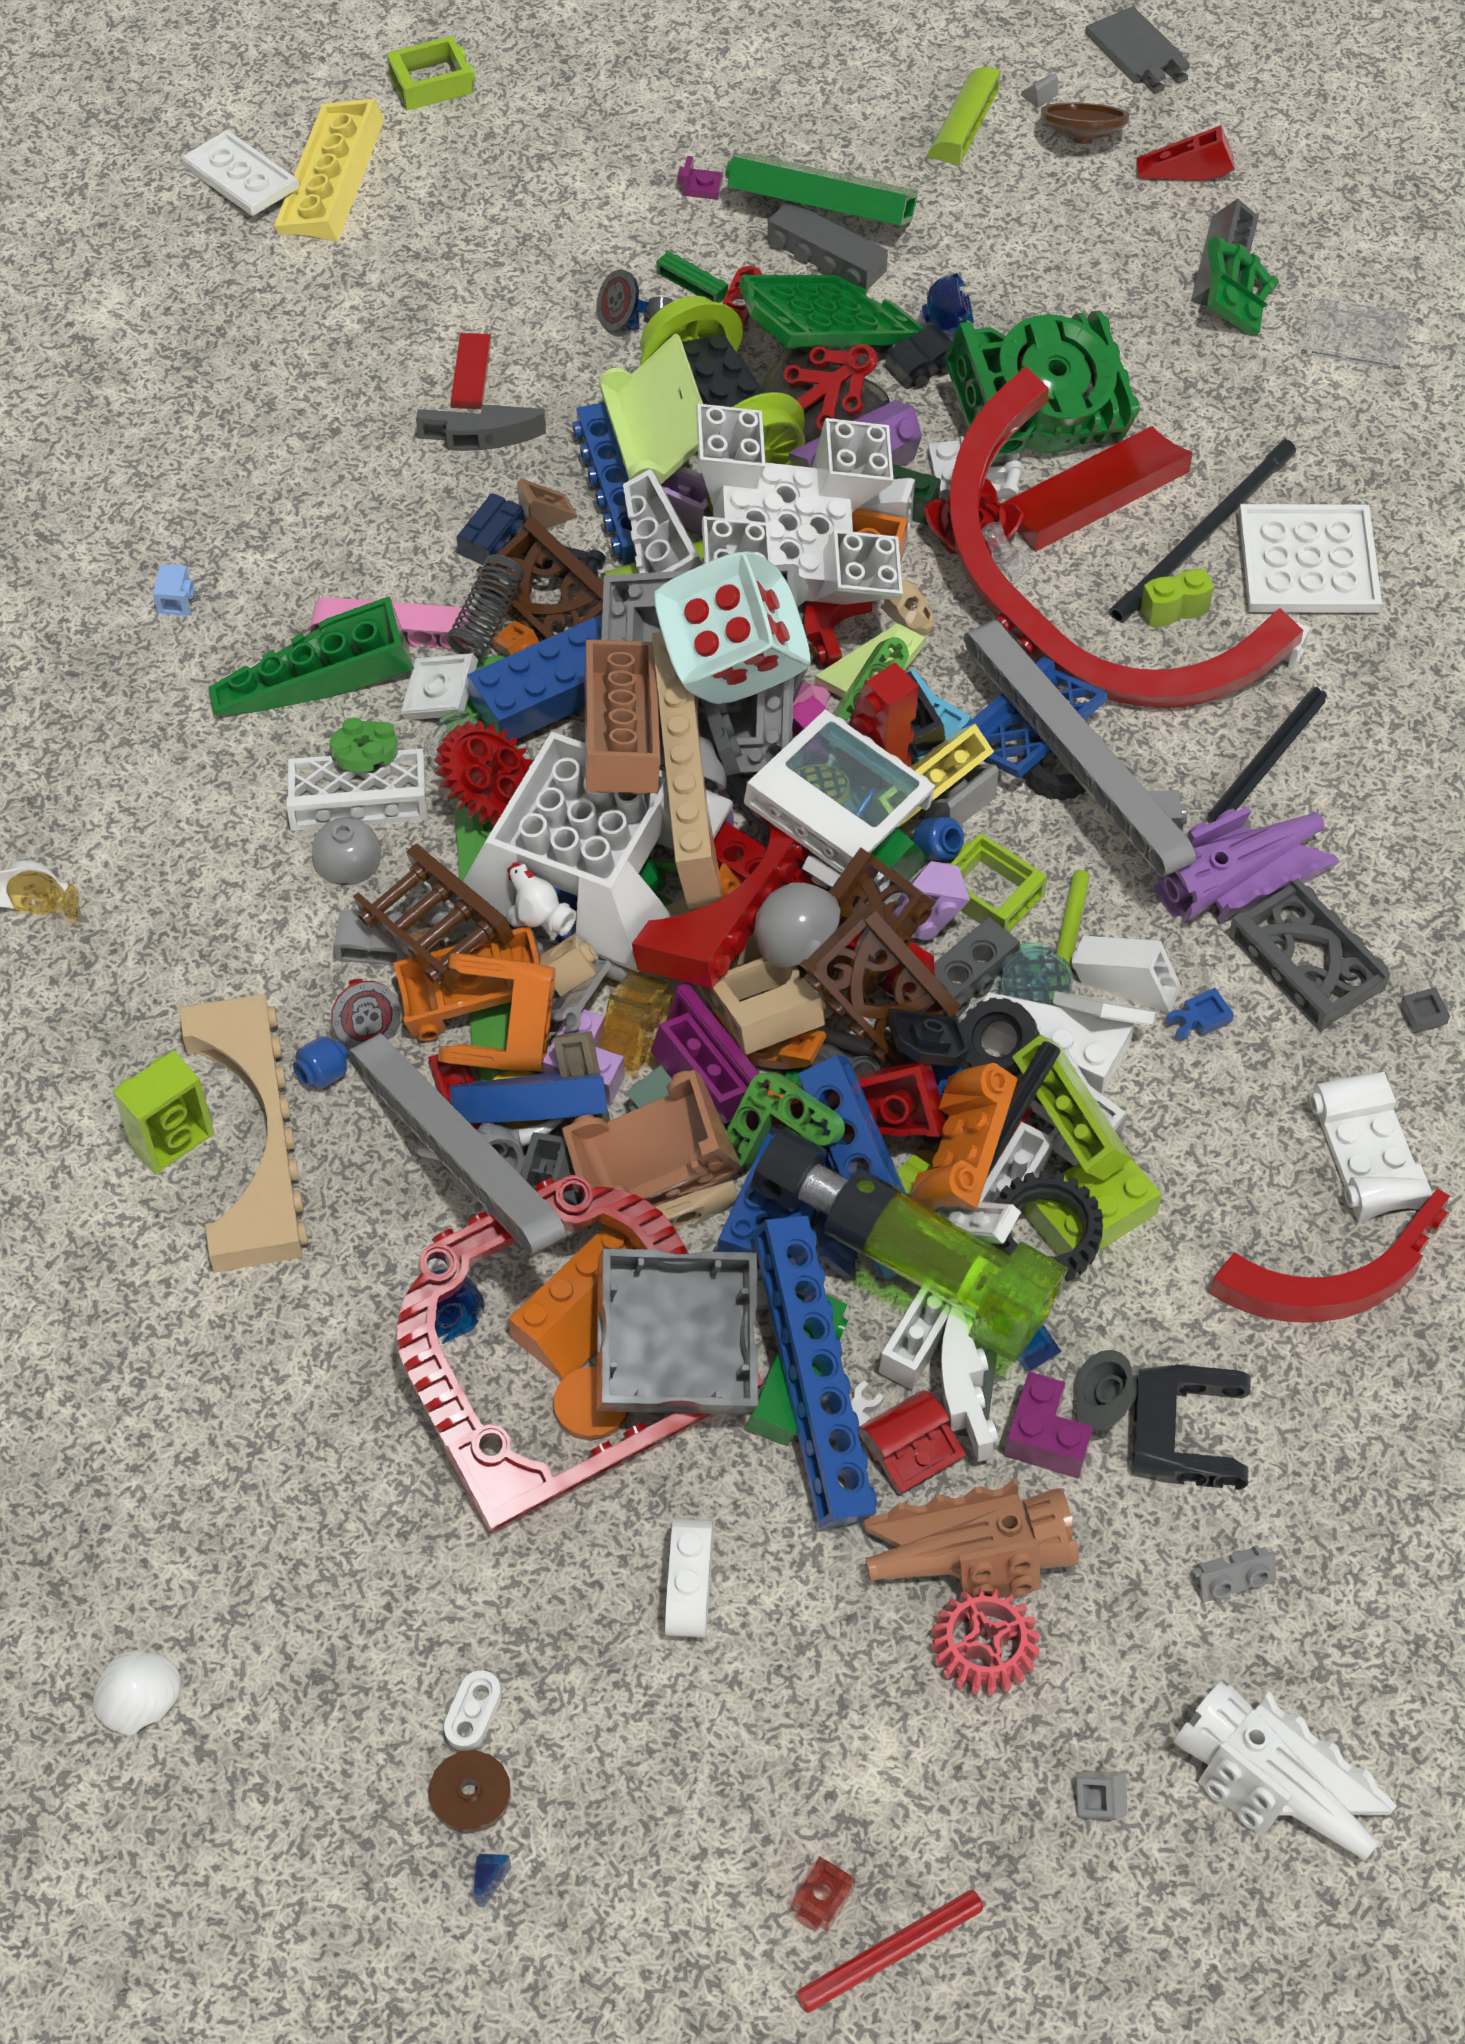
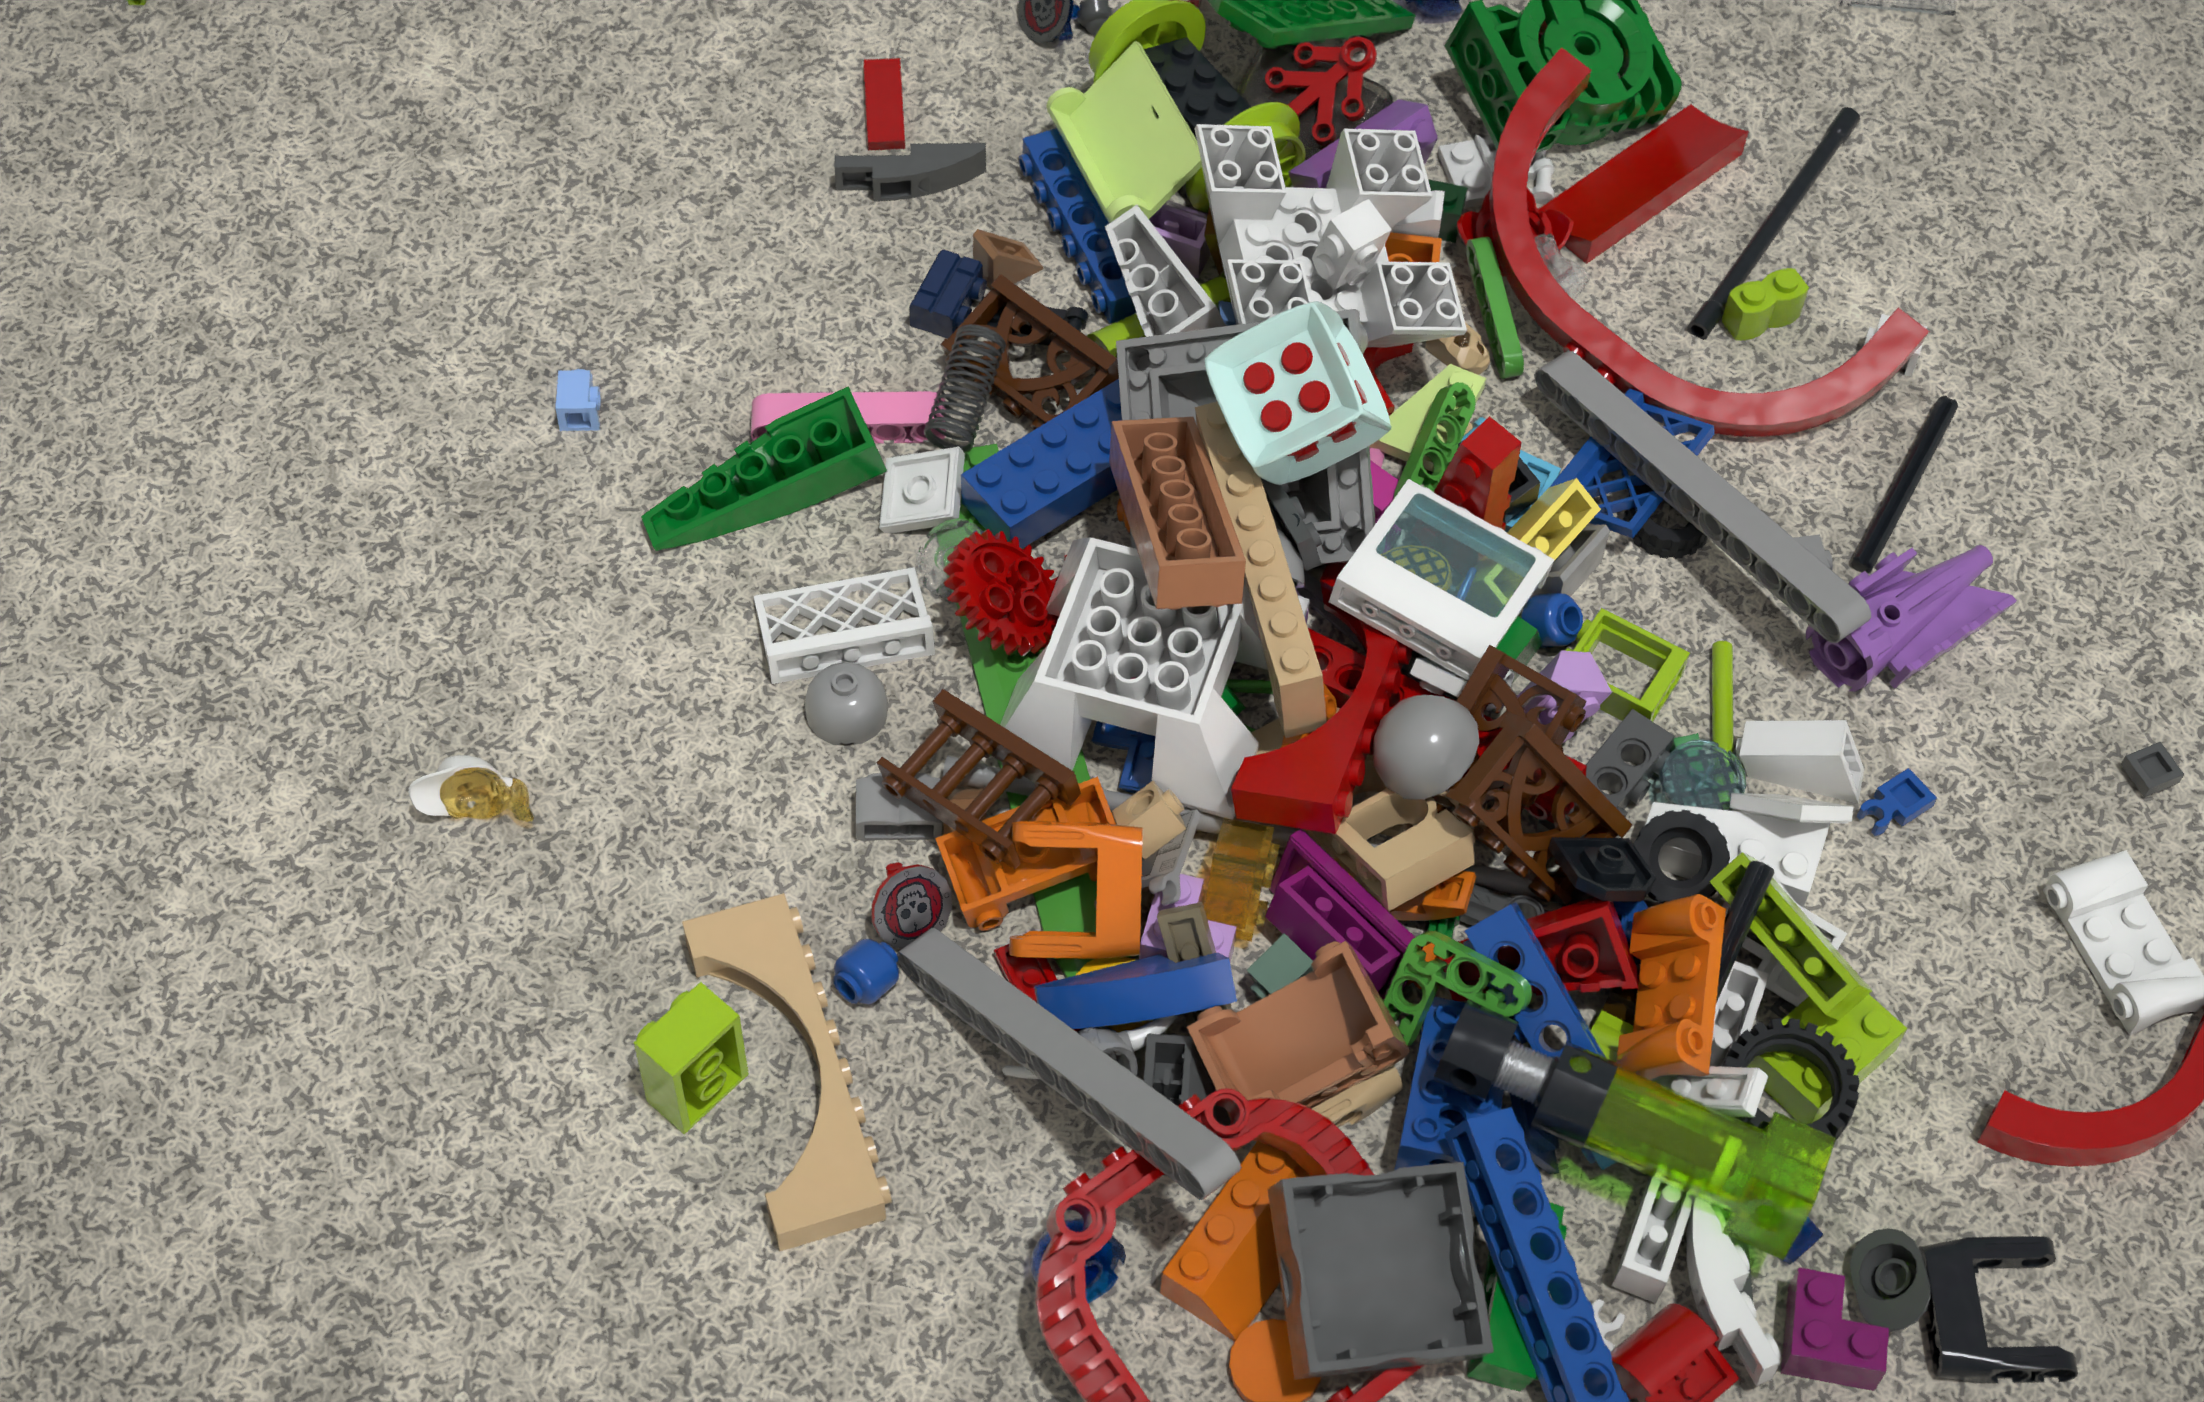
camera: 10 degrees left, 0 degrees up
(377, 740) = (858, 559): bright green plate -> none
(514, 638) = (1003, 425): orange bracket -> none
(537, 903) = (1105, 749): white animal -> none
(813, 514) = (1351, 245): none -> white brick
(919, 357) = (1411, 44): black brick -> none
(944, 580) = (1495, 307): none -> bright green beam
(1309, 558) = (1903, 244): white plate -> none
(1317, 925) = (2011, 680): dark grey fence -> none

